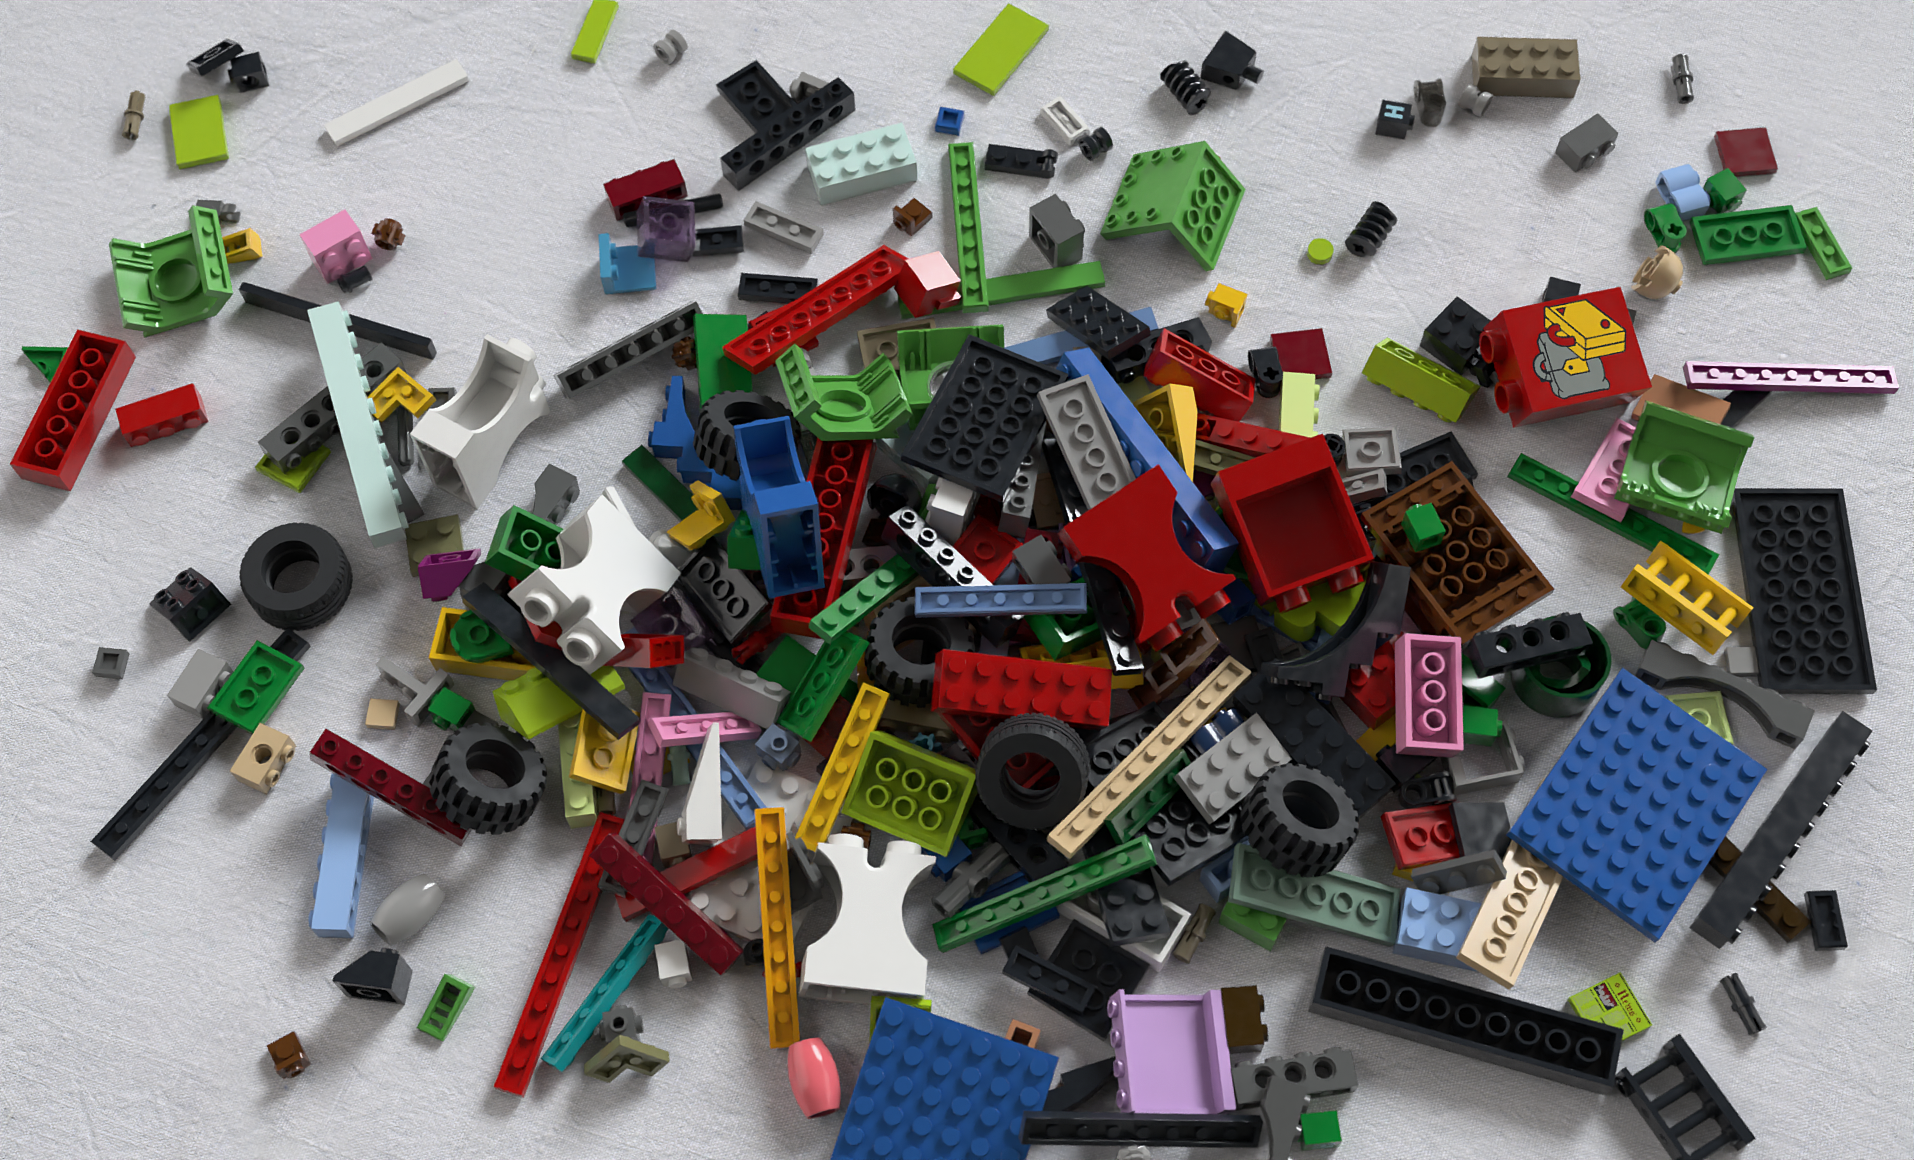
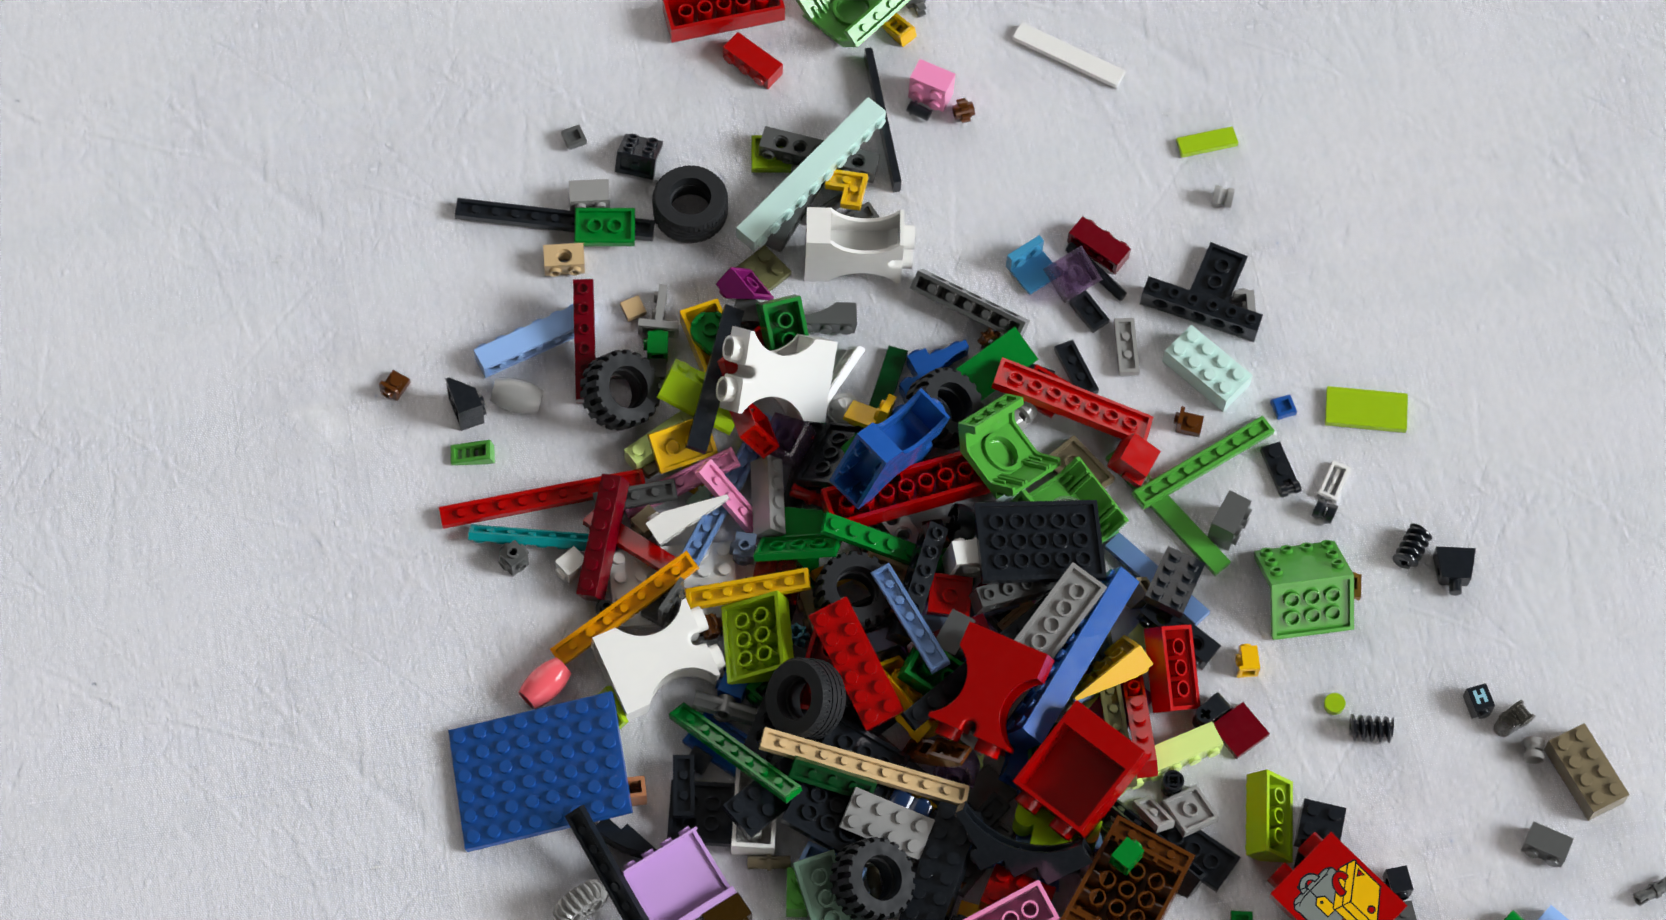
camera: 55 degrees right, 0 degrees up
(625, 1054) = (496, 565): olive plate -> none

